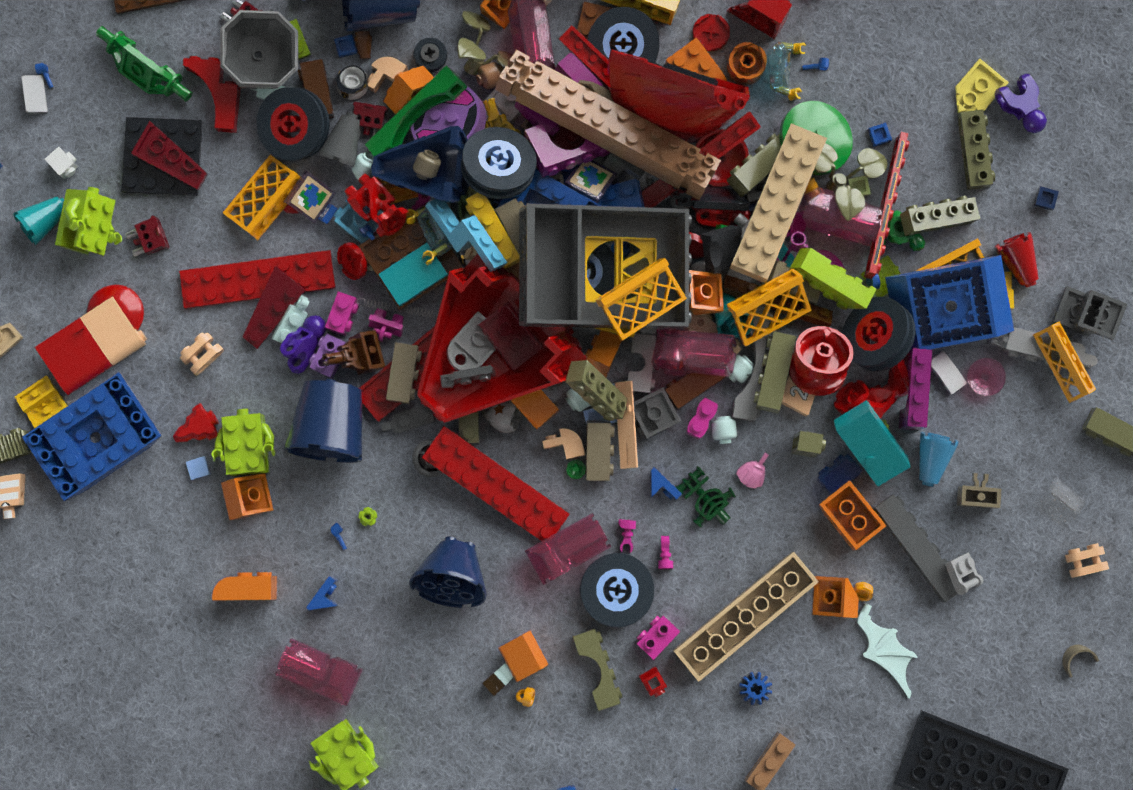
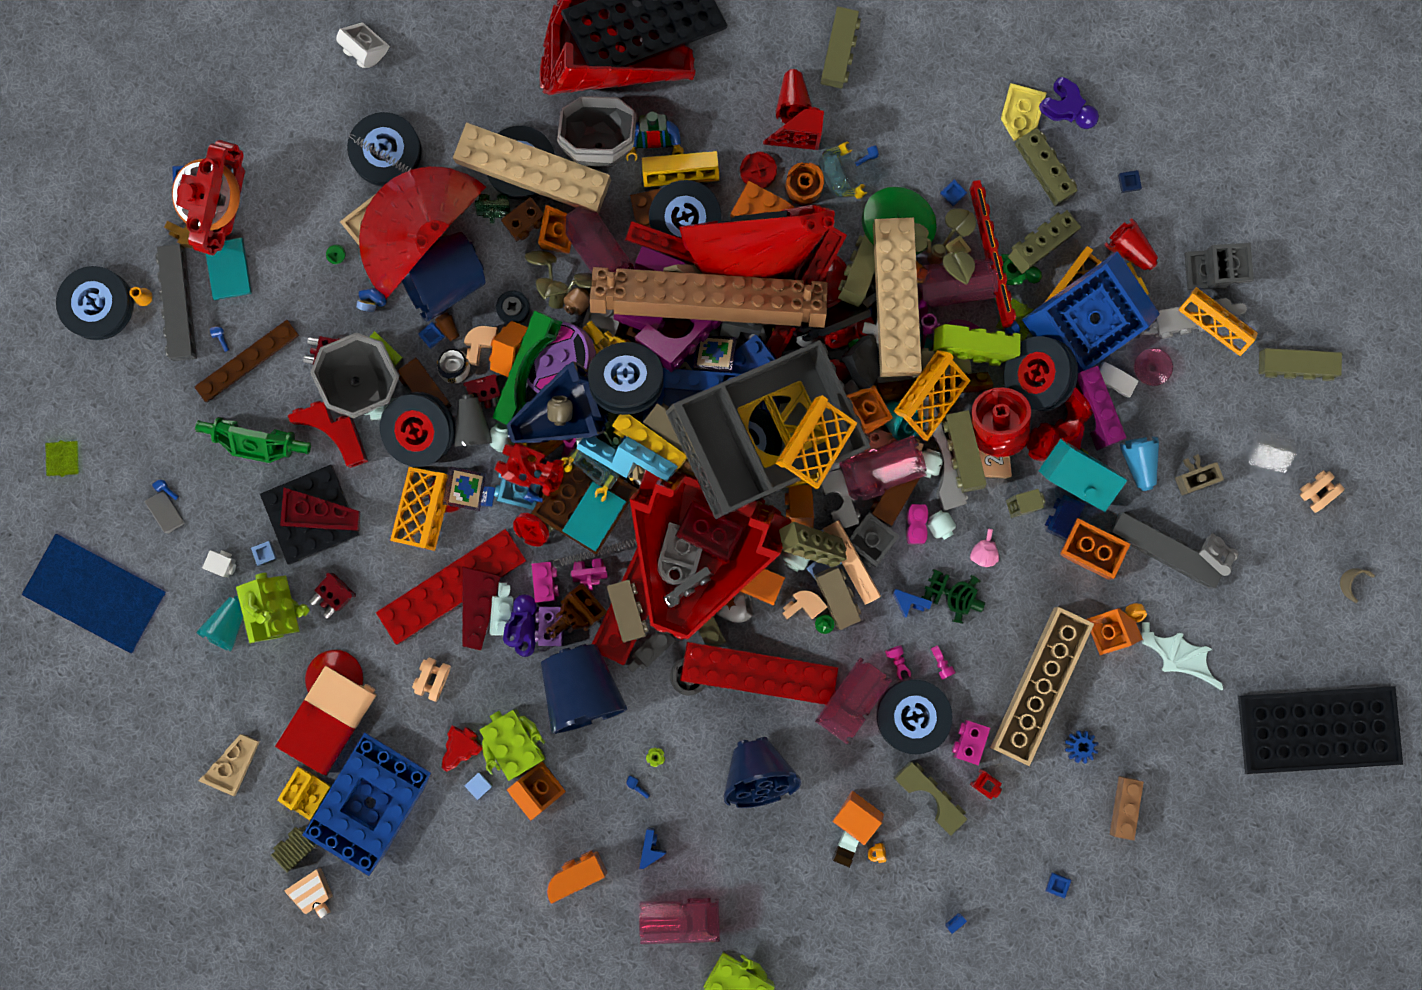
camera: 25 degrees left, 0 degrees up
(105, 172) = (263, 553): none -> light blue tile

